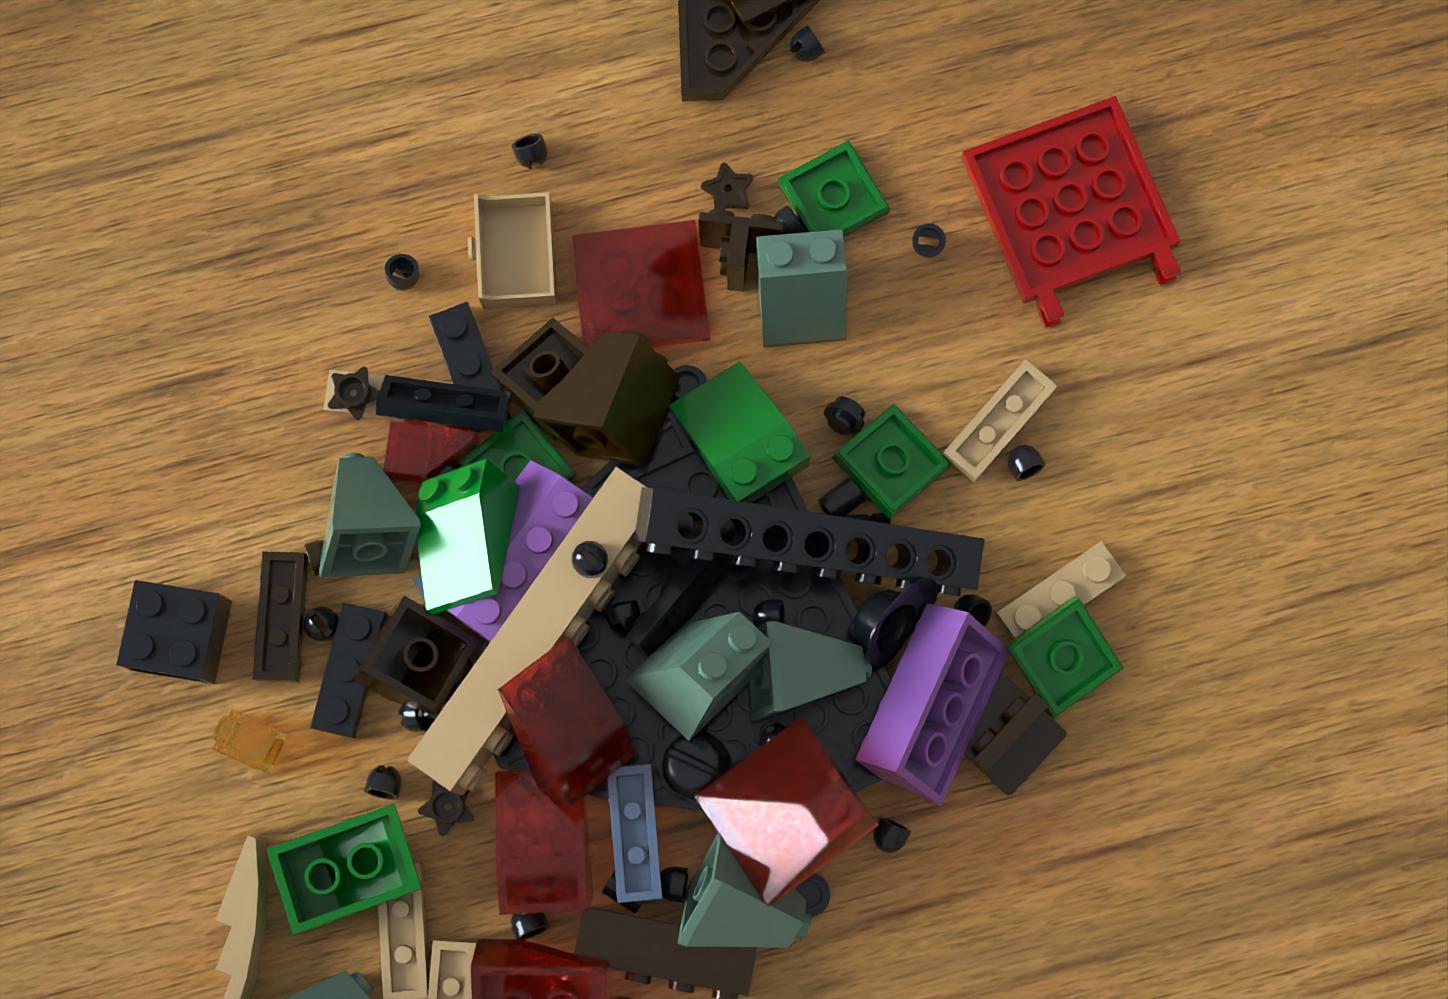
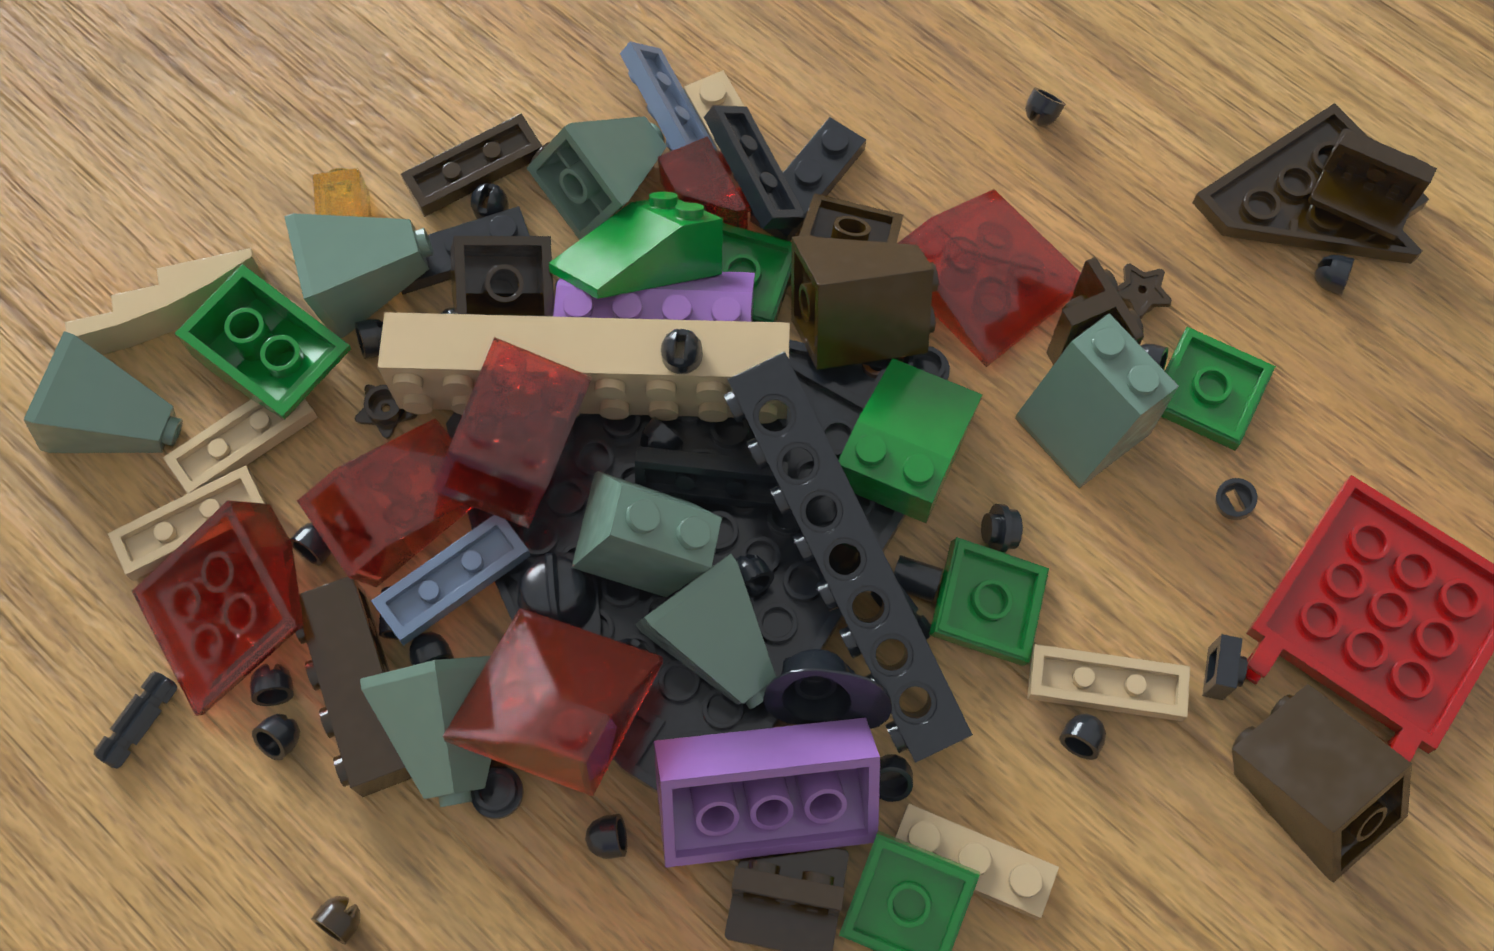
camera: 55 degrees right, 10 degrees down
(174, 632) = (404, 89): black piece -> none
(320, 759) = (354, 264): none -> sand green slope
(326, 430) = (663, 95): none -> sand blue plate
(343, 386) = (709, 85): dark brown plate -> none
(403, 266) = (860, 72): black hinge -> none
(514, 250) = (942, 147): tan container -> none
(1039, 336) = (1224, 667): none -> black plate
(1152, 328) = (1324, 779): none -> dark brown slope

